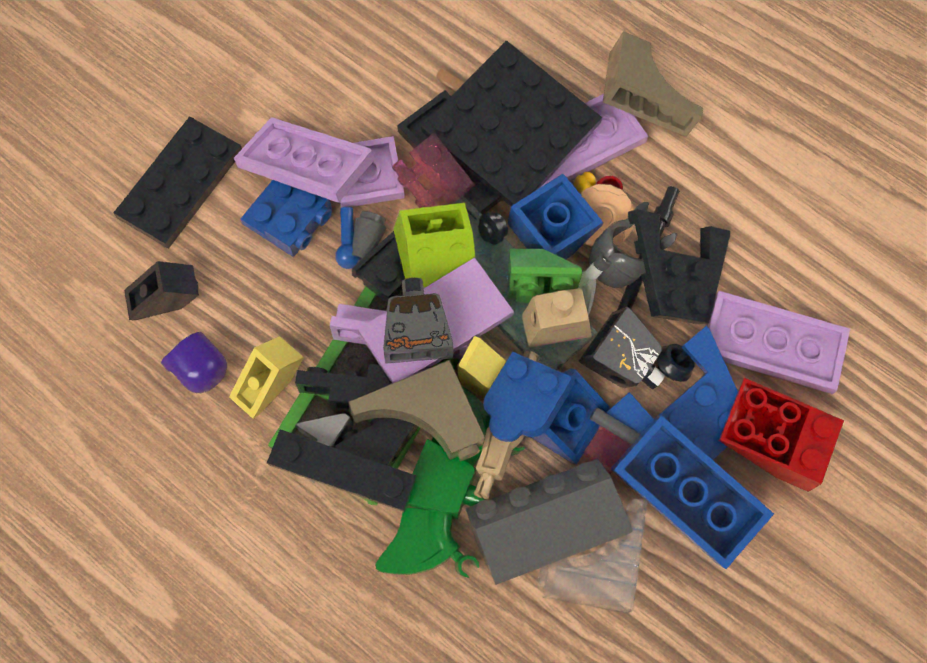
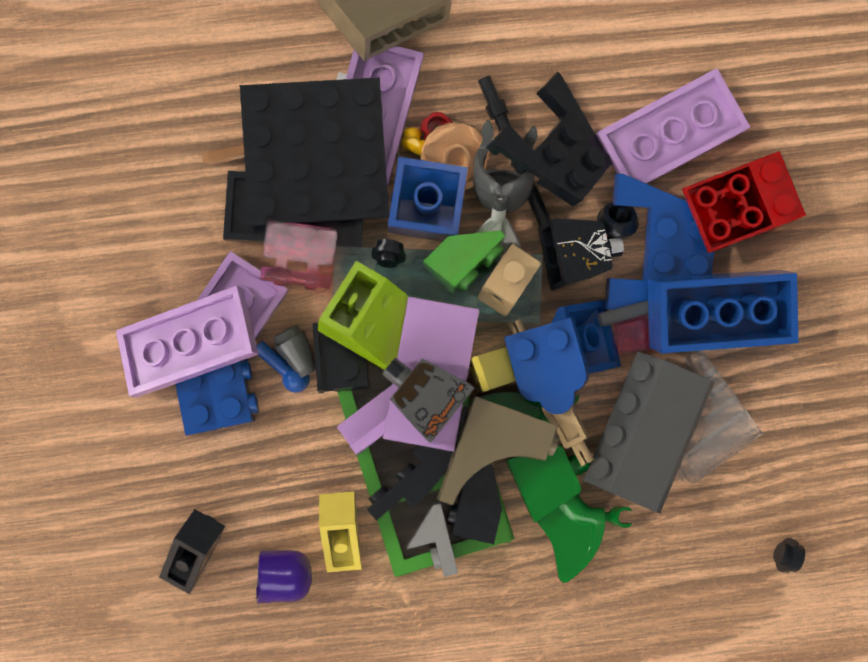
camera: 50 degrees left, 15 degrees up
(178, 182) = (101, 453): black plate -> none
(342, 470) = (477, 547): black plate -> none

